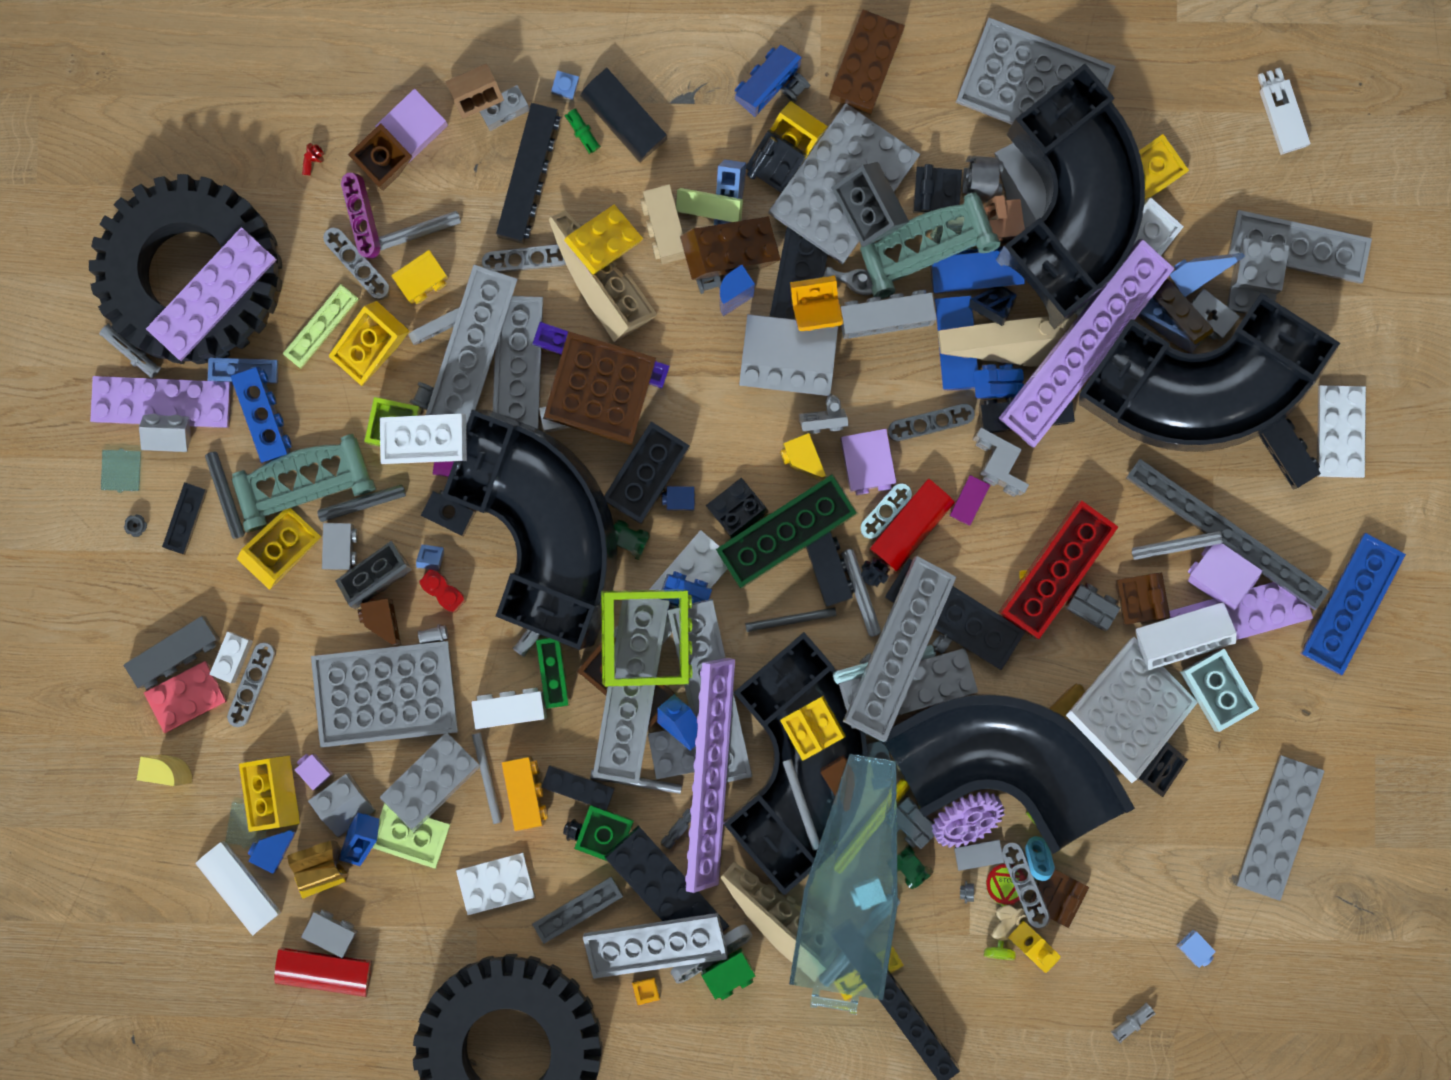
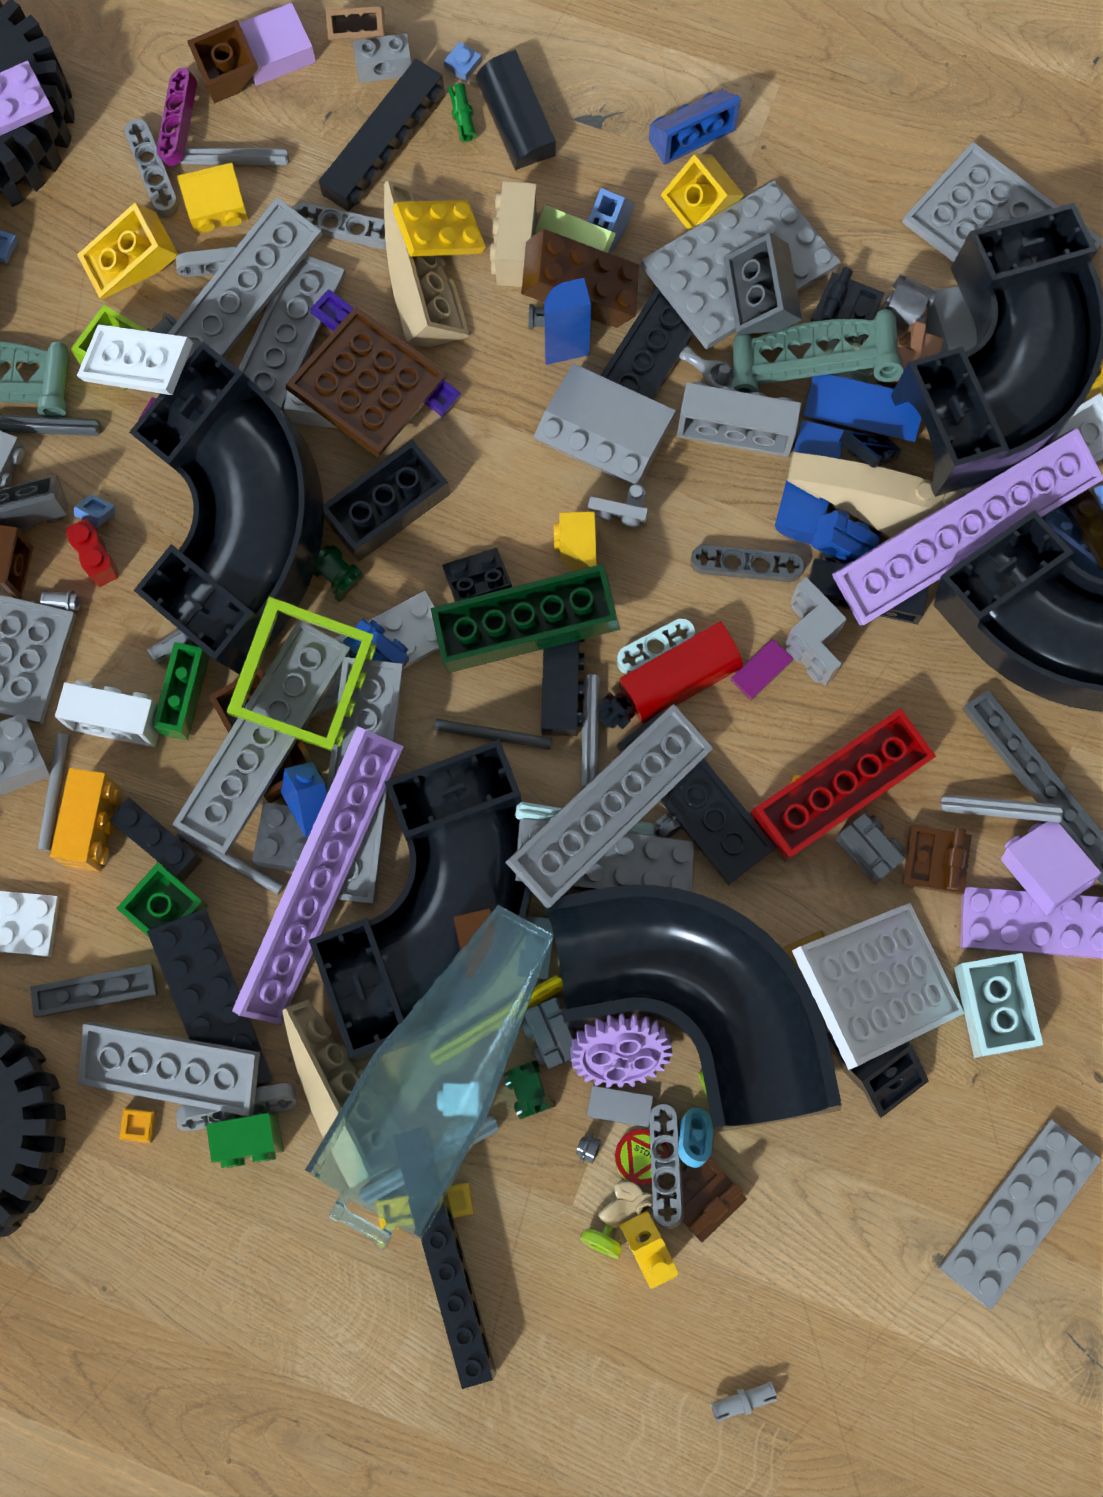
camera: 25 degrees right, 10 degrees down
(313, 153) = (151, 37): red plate -> none
(320, 326) = (81, 221): yellowish green tile -> none
(435, 512) = (144, 483): black brick -> none
(572, 830) = (124, 887): black plate -> none
(677, 830) = (250, 941): dark grey axle -> none
(679, 498) = (414, 545): dark blue brick -> none
(775, 161) = (669, 210): black plate -> none
(795, 87) = (722, 144): dark grey bush -> none
(801, 803) = (417, 947): light grey bar -> none
(812, 728) = (466, 862): yellow slope -> none
(816, 303) = (659, 373): light orange bracket -> none
(866, 62) = (814, 142): reddish brown brick -> none
(868, 461) = (655, 580): lavender brick -> none
(1186, 636) = (977, 921): white brick -> none
(1196, 949) = (860, 1333): light blue brick -> none

